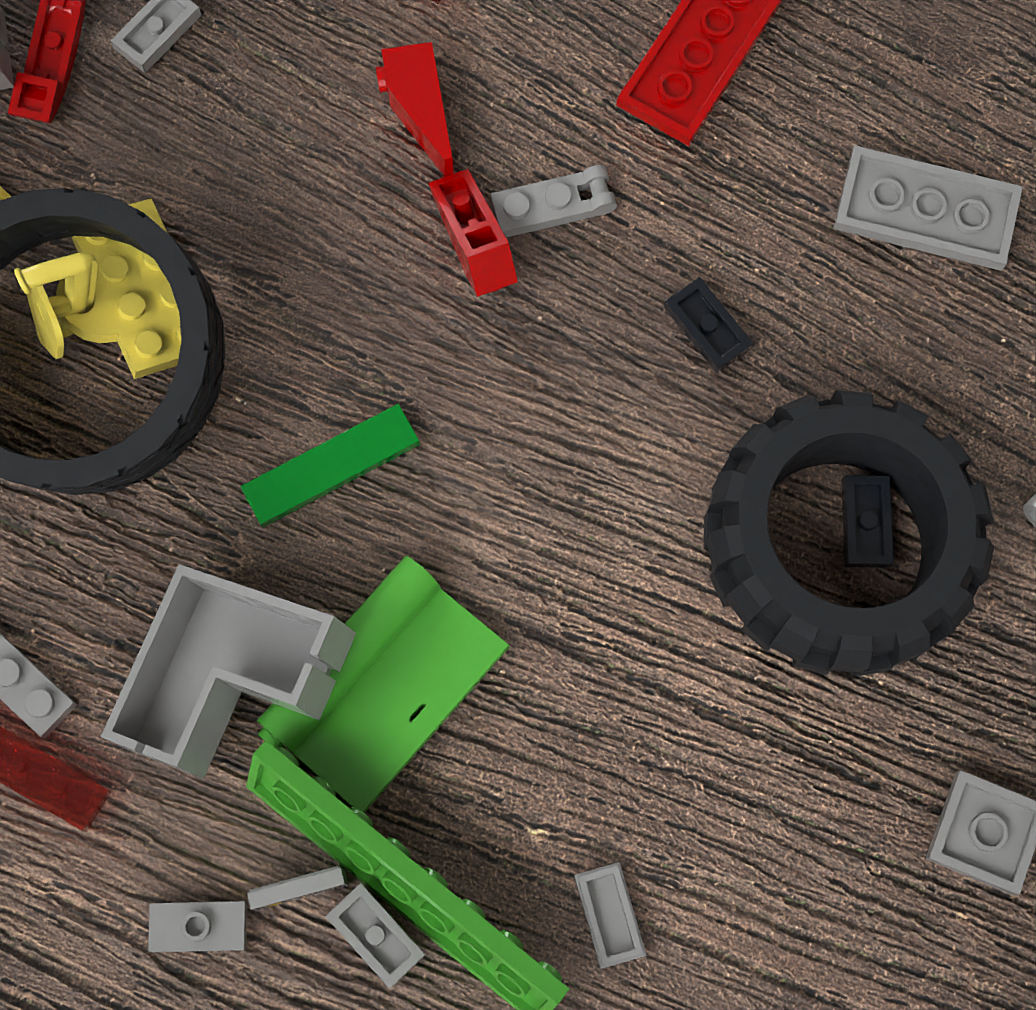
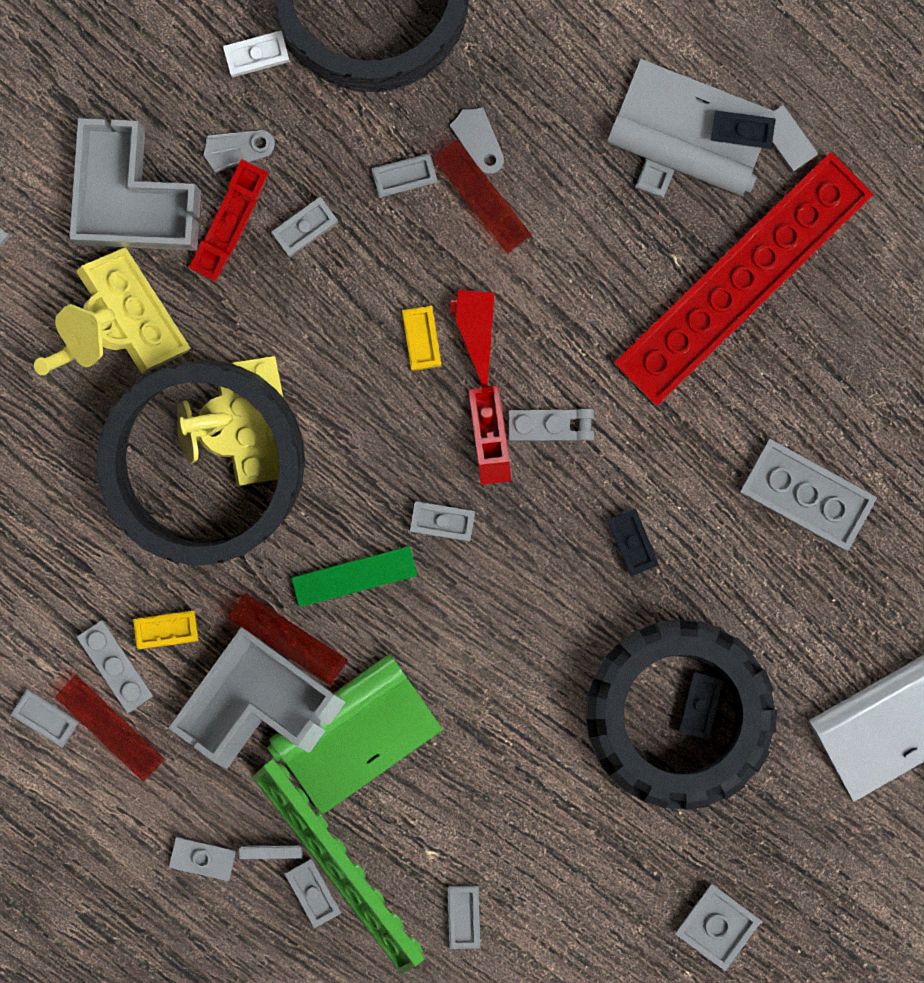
camera: 15 degrees right, 10 degrees up
(73, 603) = (166, 630): none -> yellow plate
(253, 569) = (288, 639): none -> clear red plate
(348, 133) = (421, 338): none -> yellow tile
(436, 359) = (442, 521): none -> light grey plate

